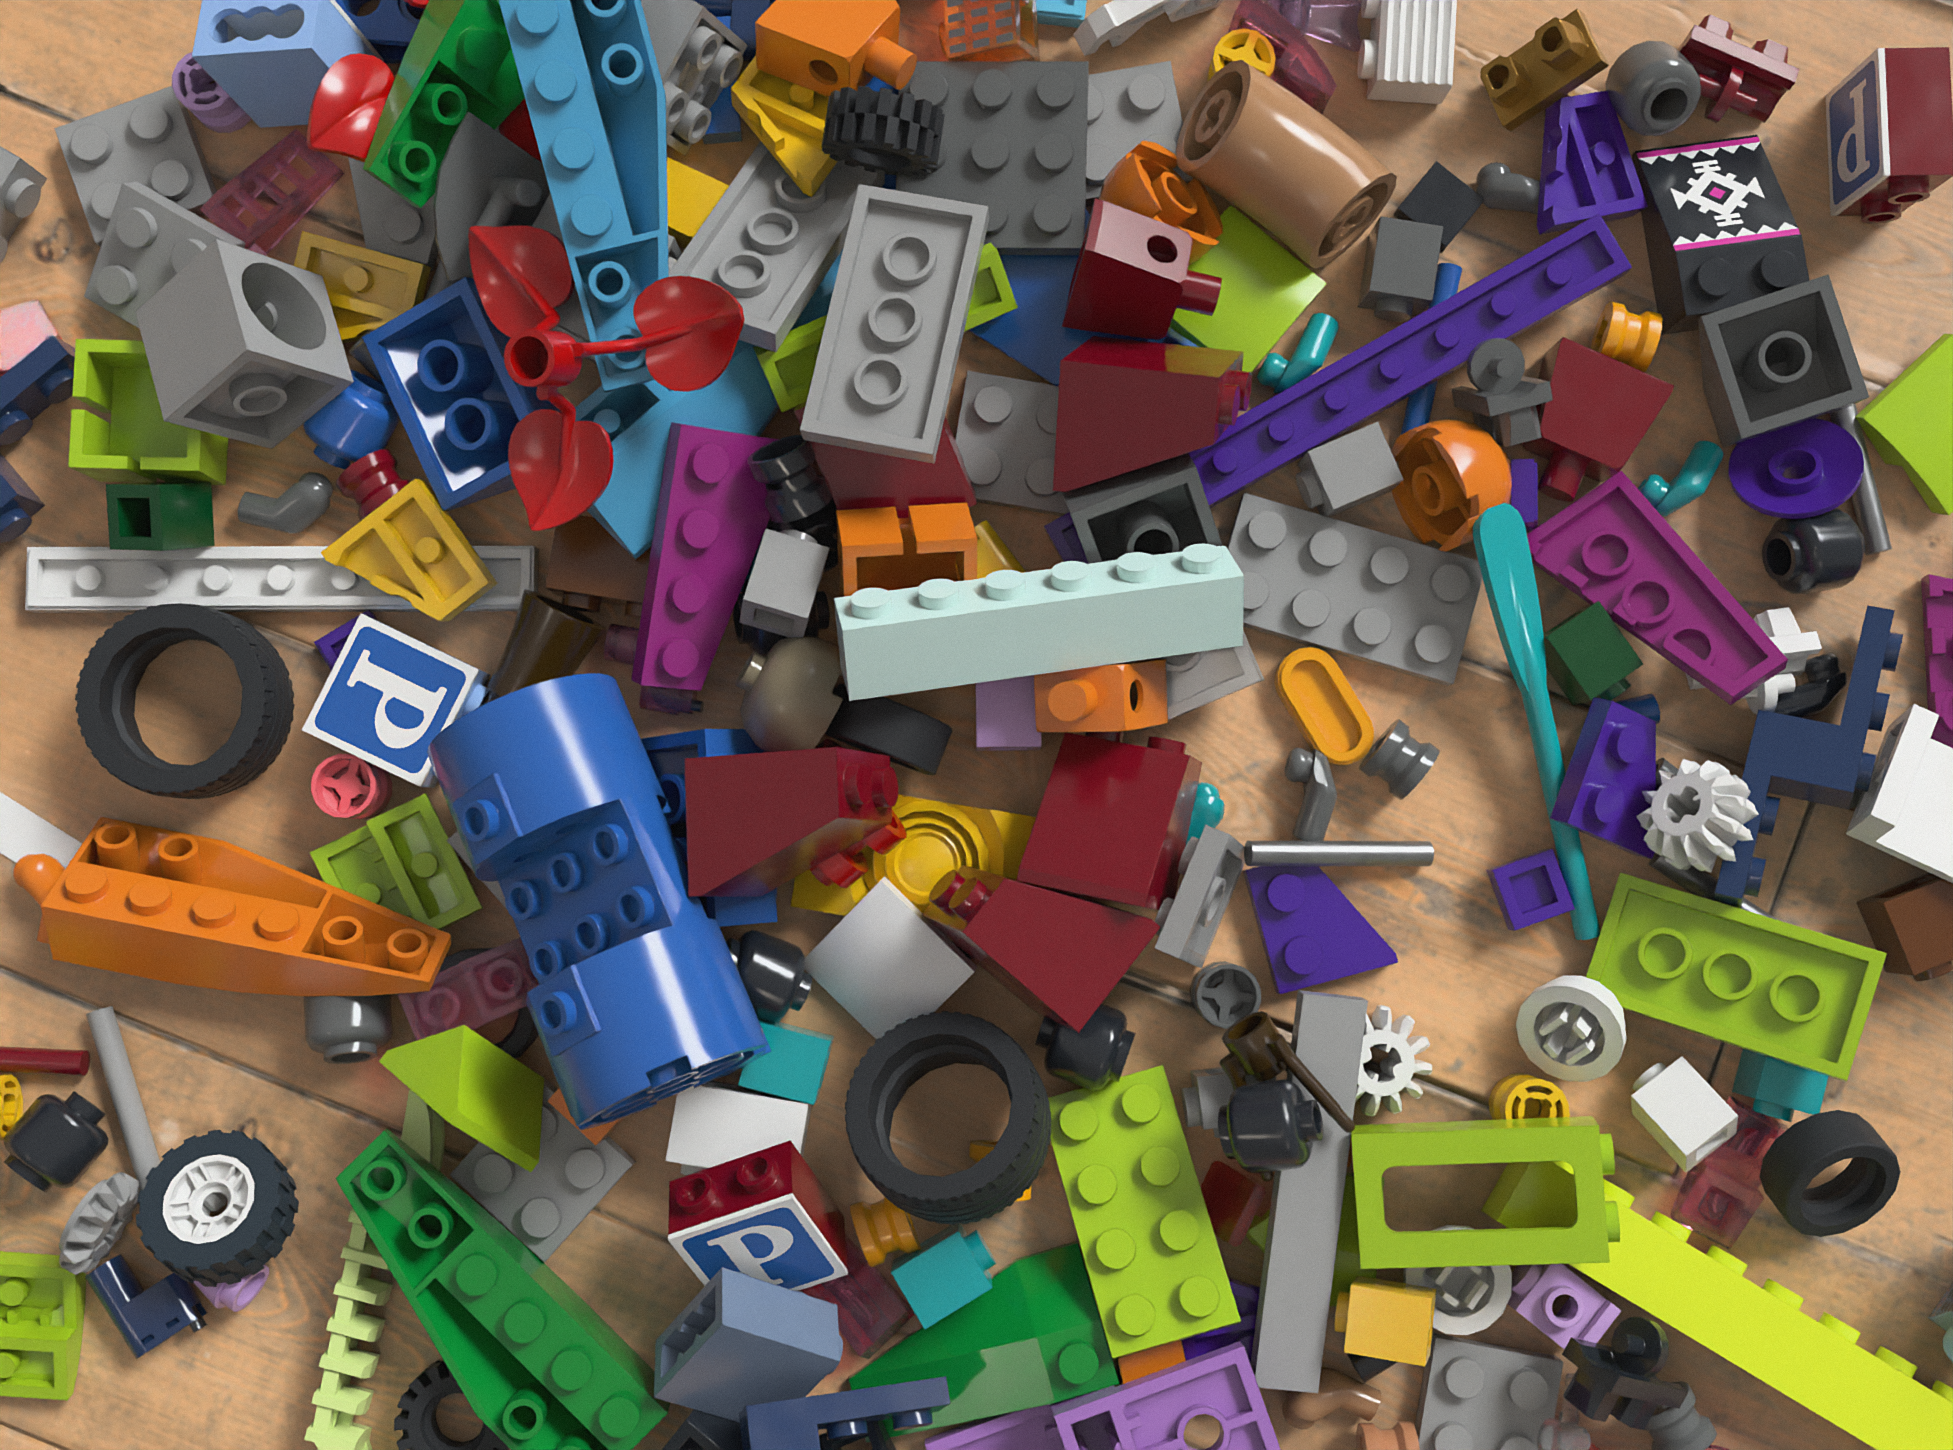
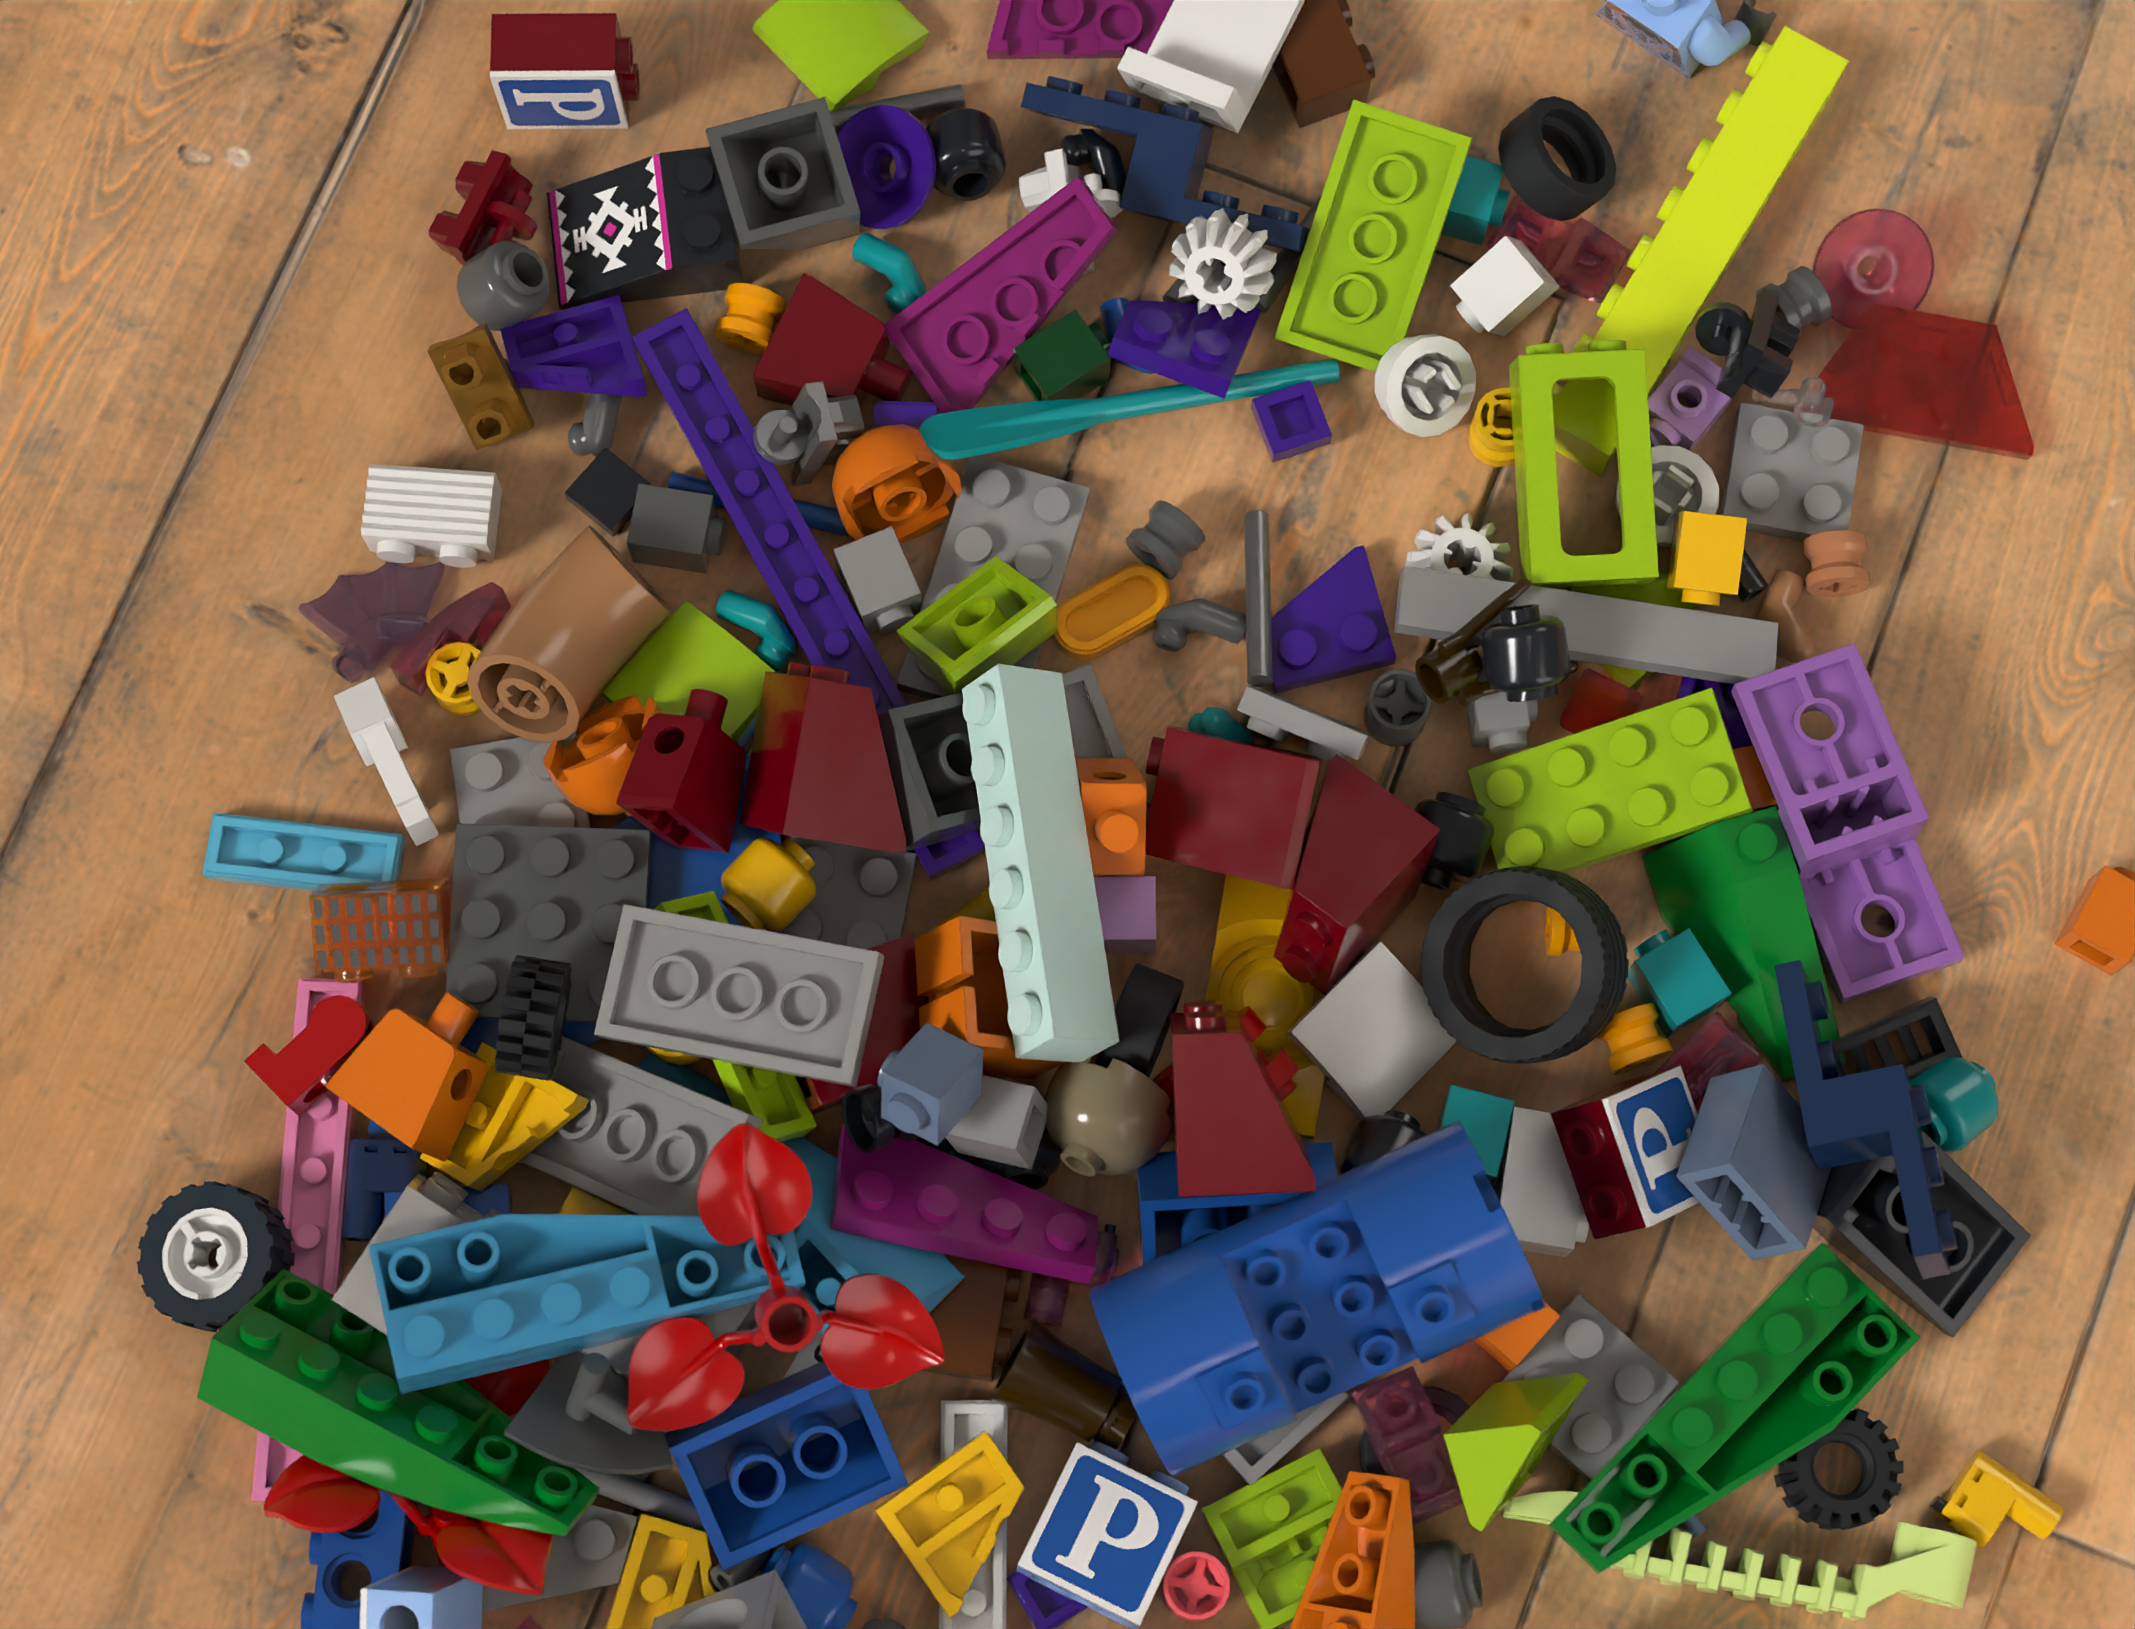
camera: 85 degrees left, 10 degrees down
(371, 481) = (879, 1564): dark red wheel -> none
(803, 510) = (930, 1083): none -> sand blue brick
(1025, 363) = (768, 884): none -> yellow head
(1297, 568) = (979, 624): none -> lime slope

